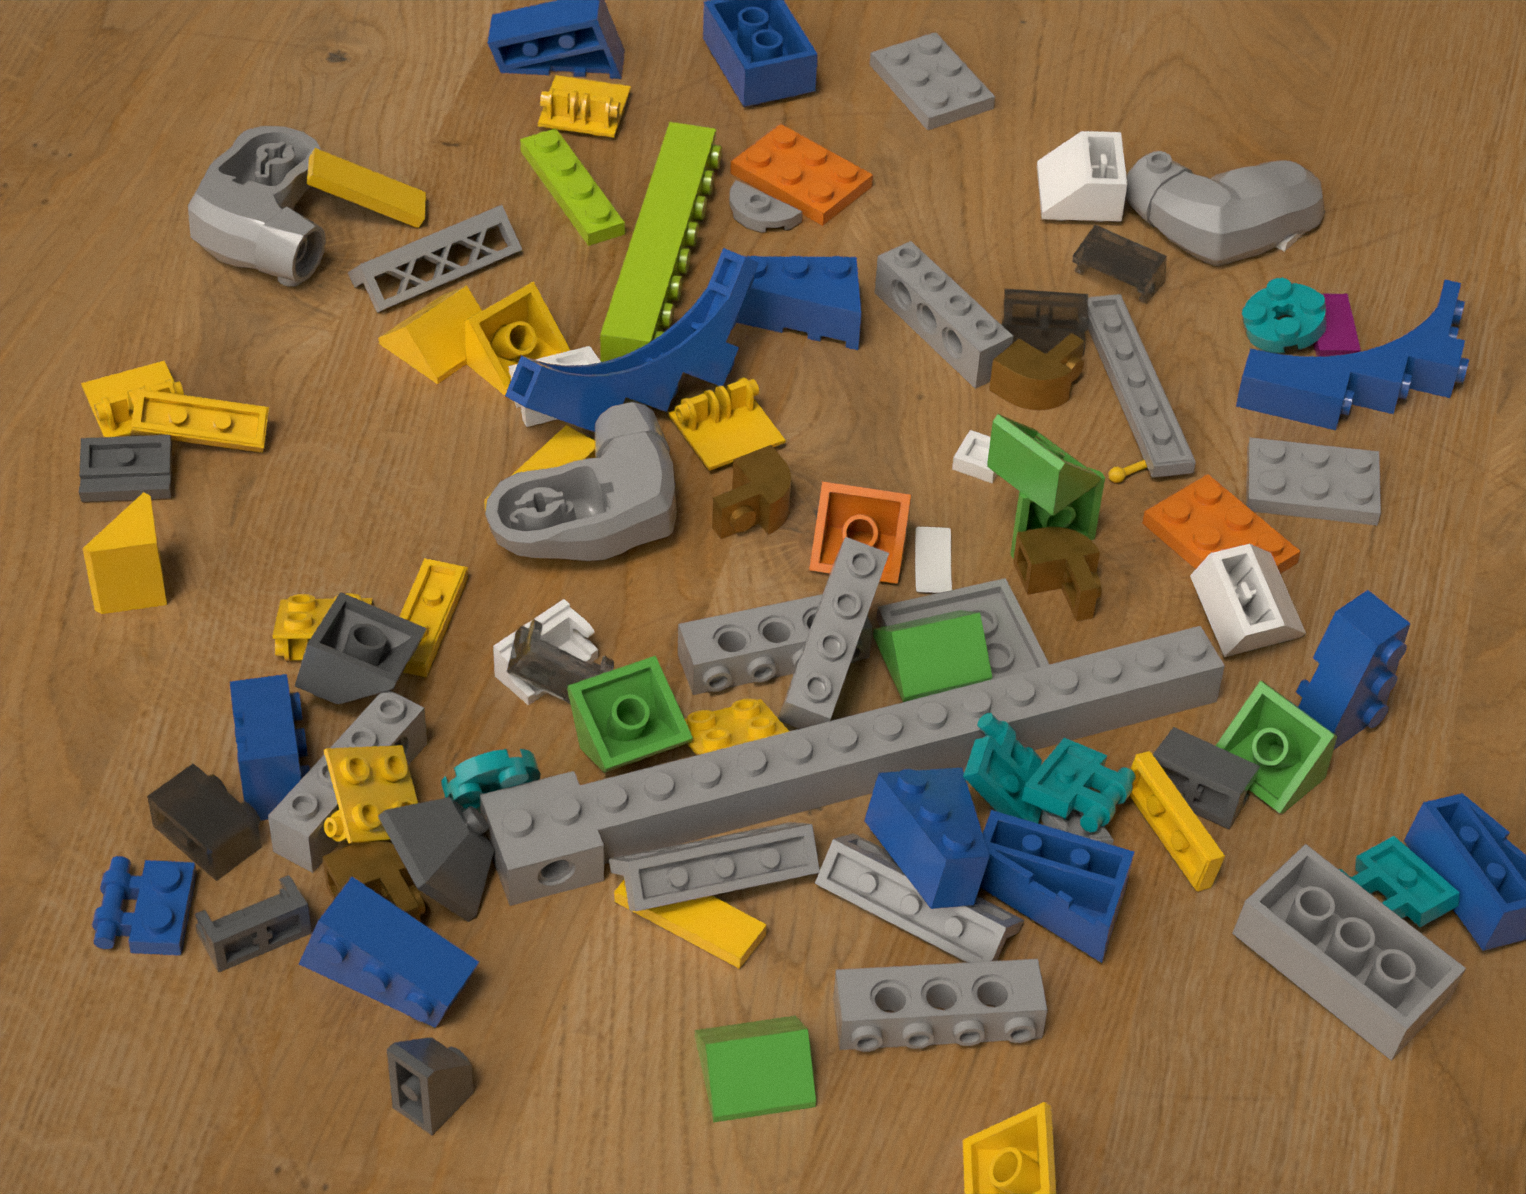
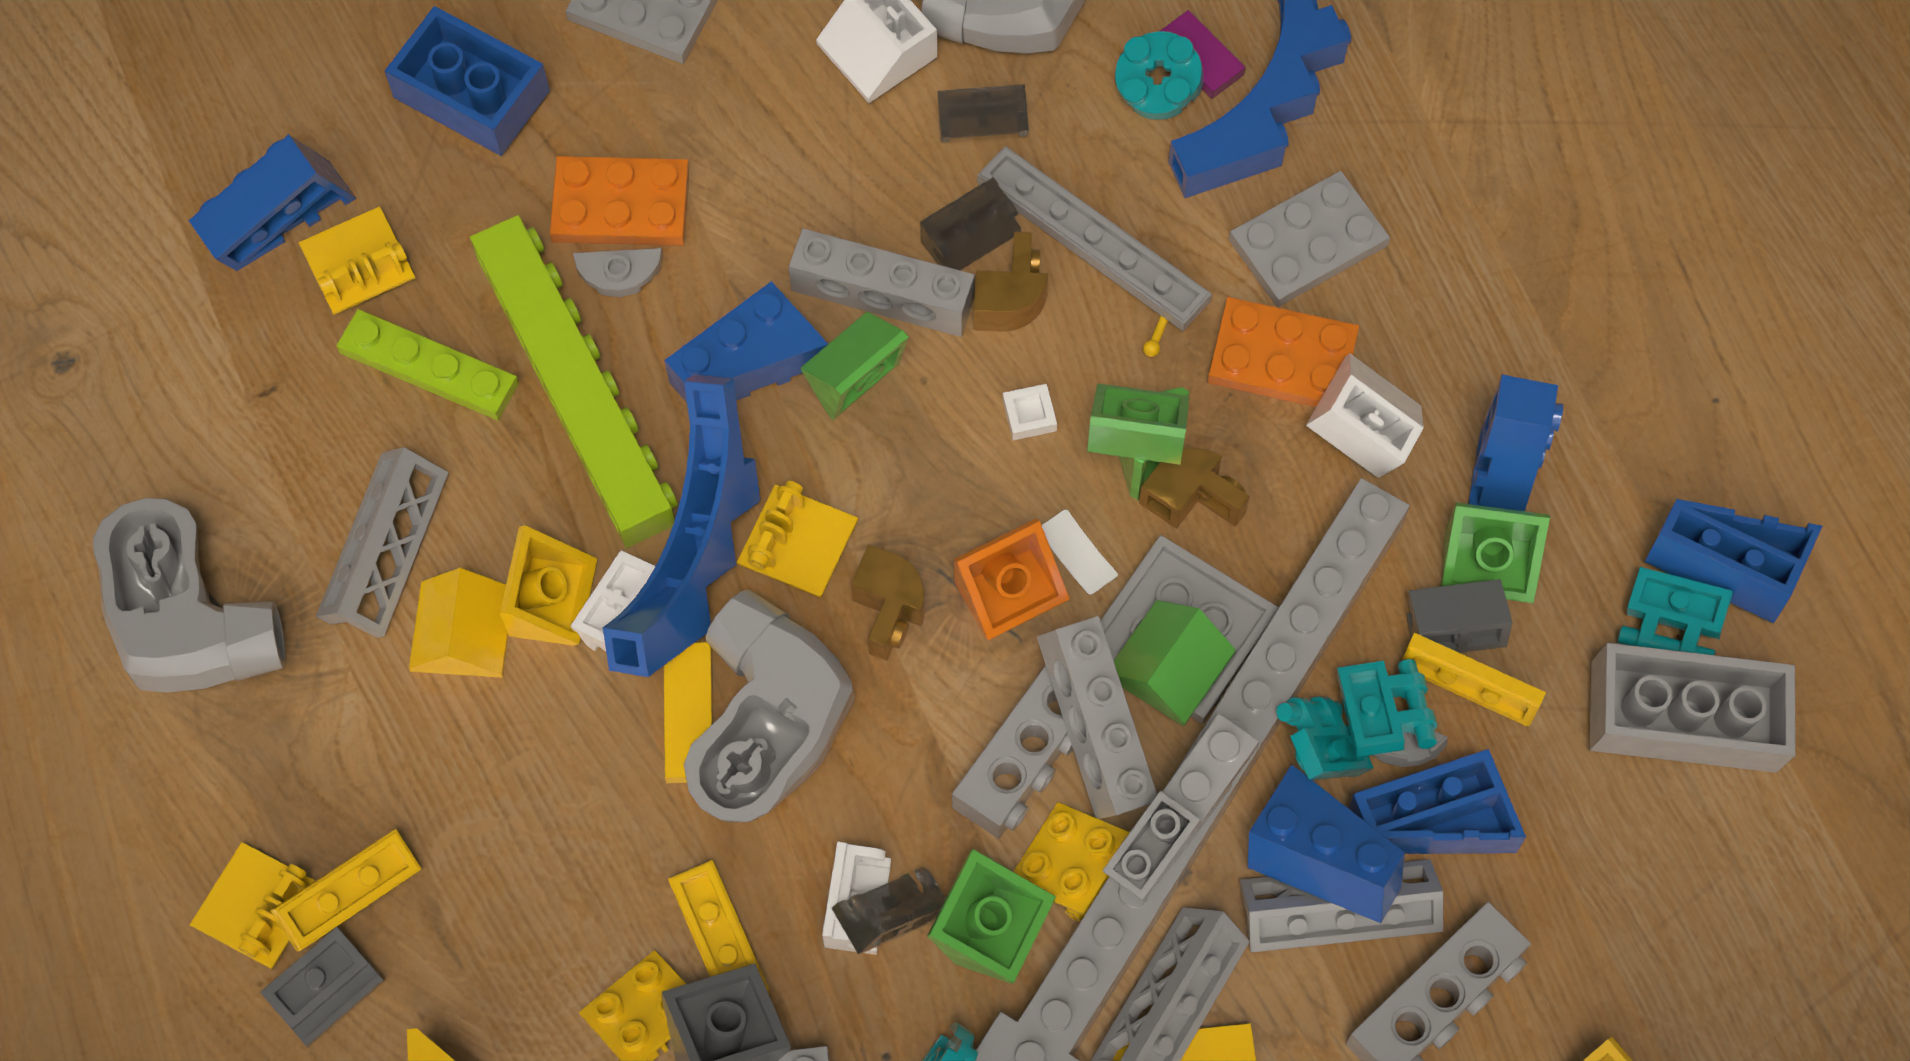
camera: 35 degrees left, 20 degrees up
(366, 188) = (258, 516): yellow tile -> none
(830, 726) = (1181, 808): none -> light grey slope
(871, 345) = (854, 362): none -> bright green slope

